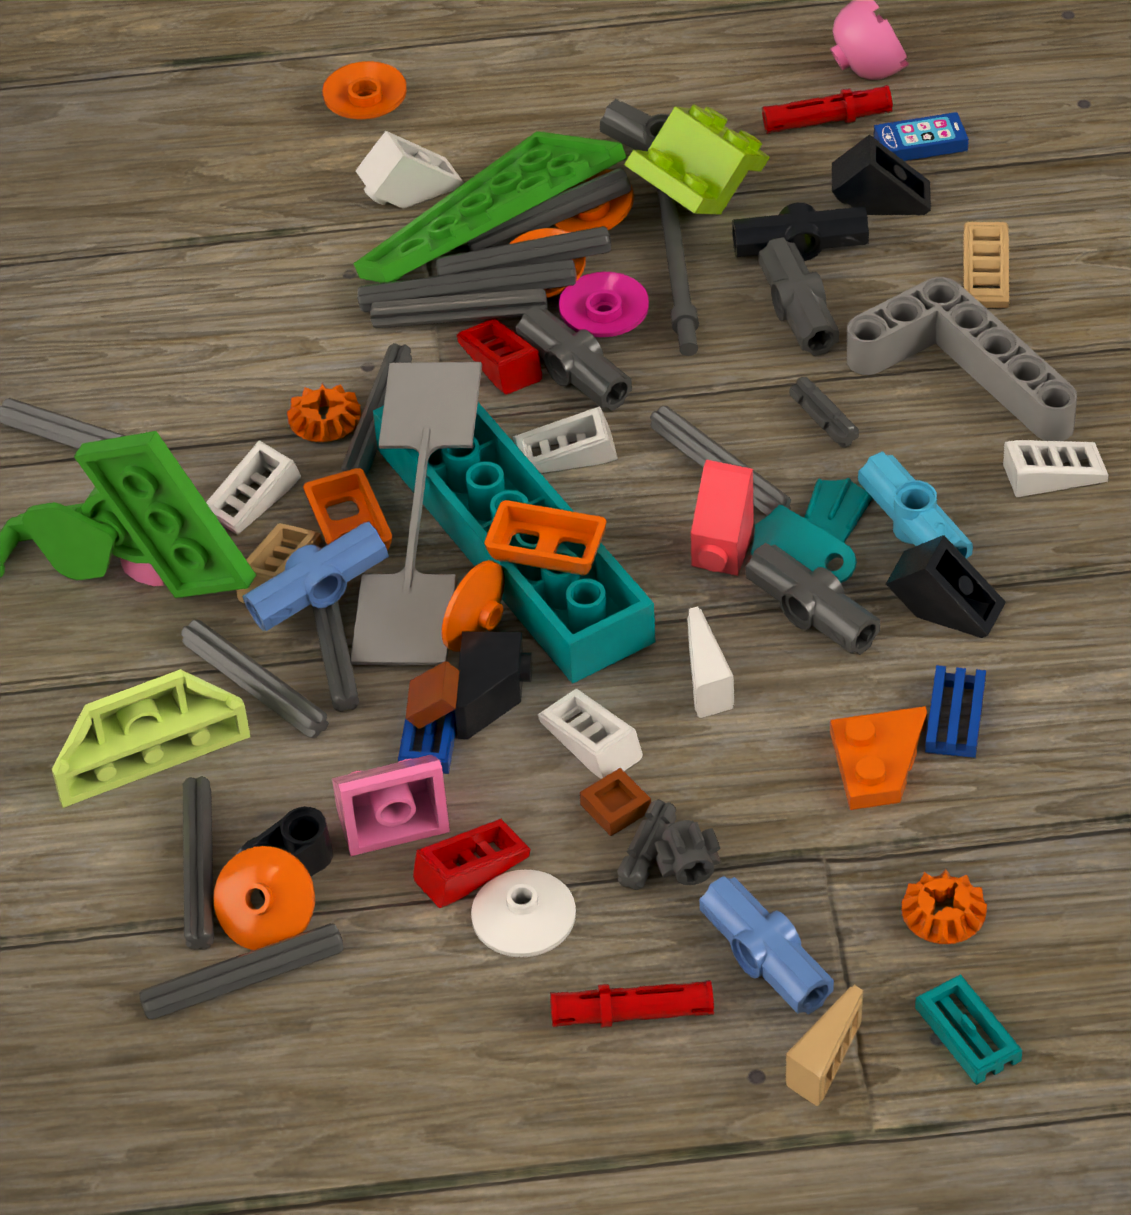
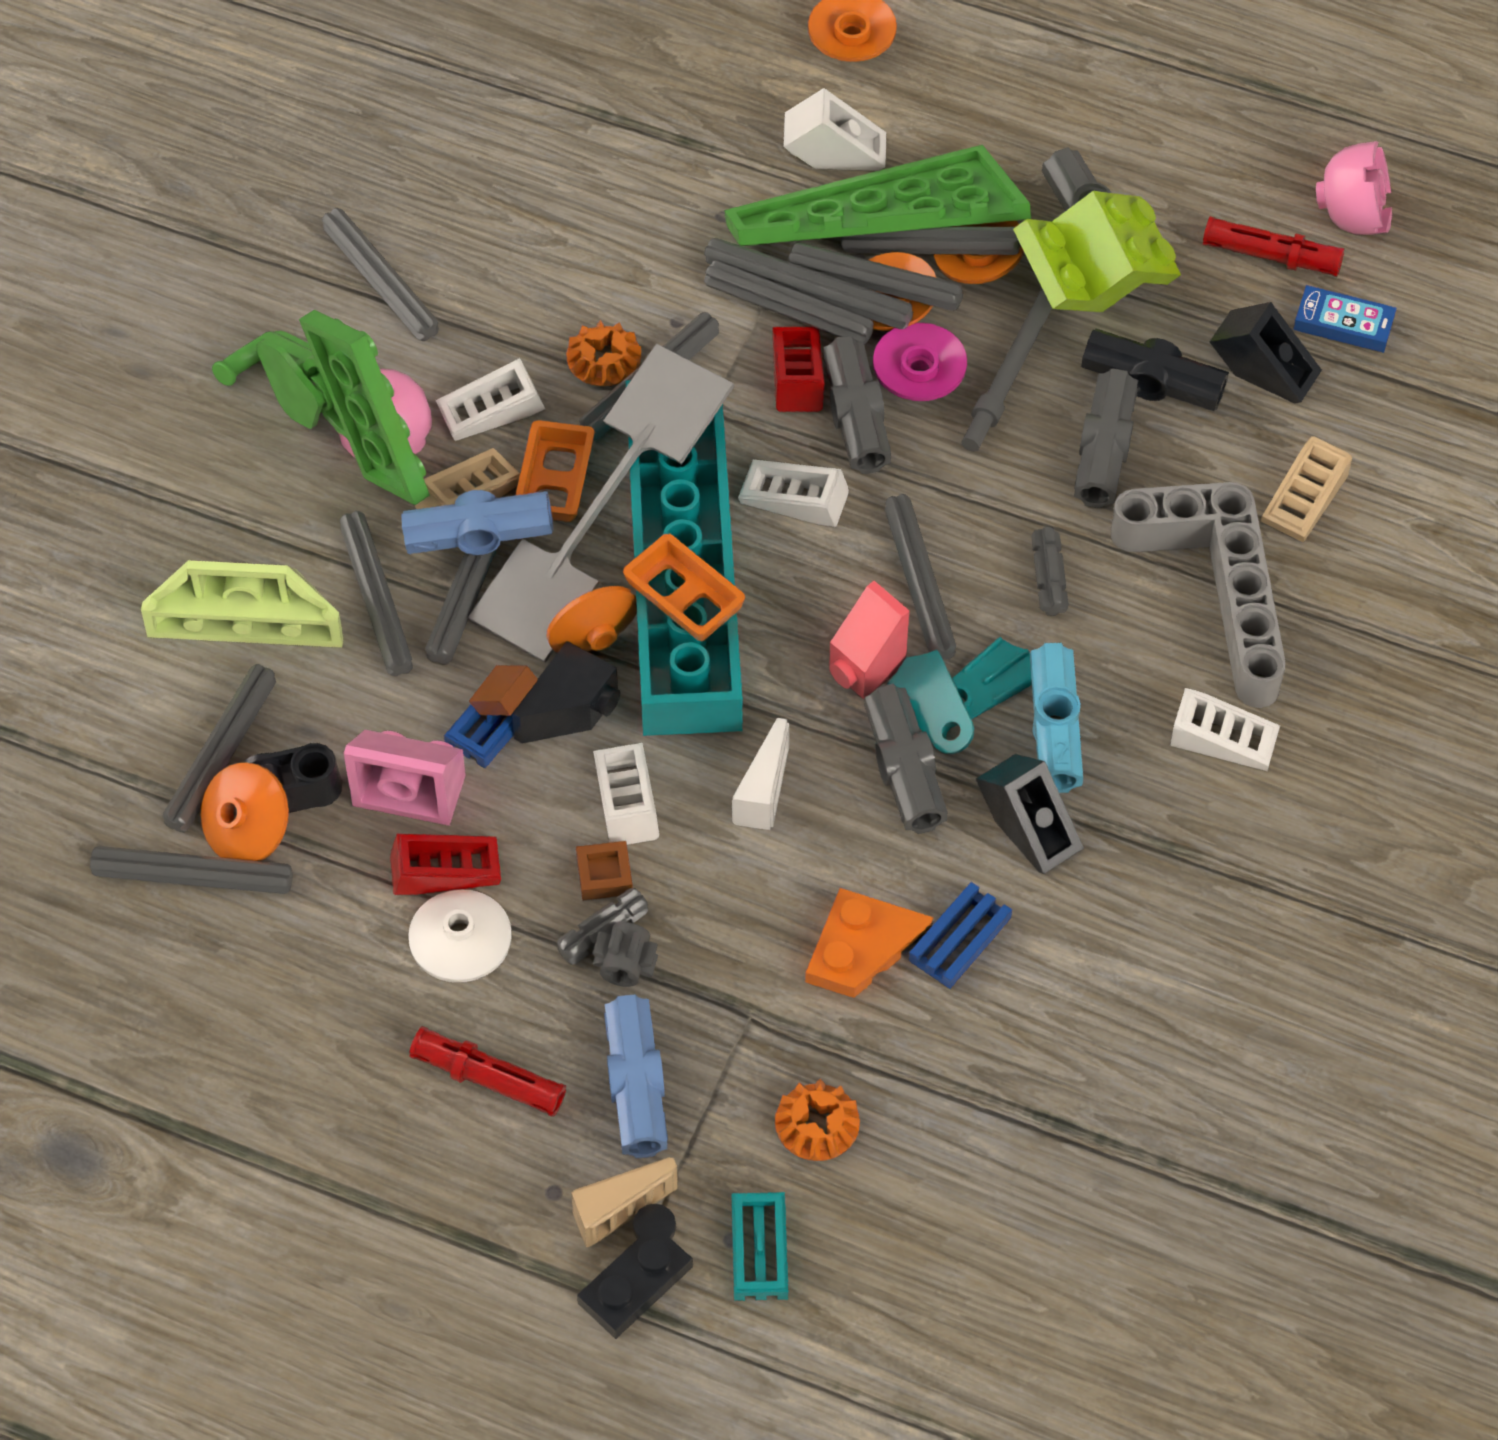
camera: 25 degrees right, 10 degrees up
(882, 1101) = (638, 1274): none -> black hinge

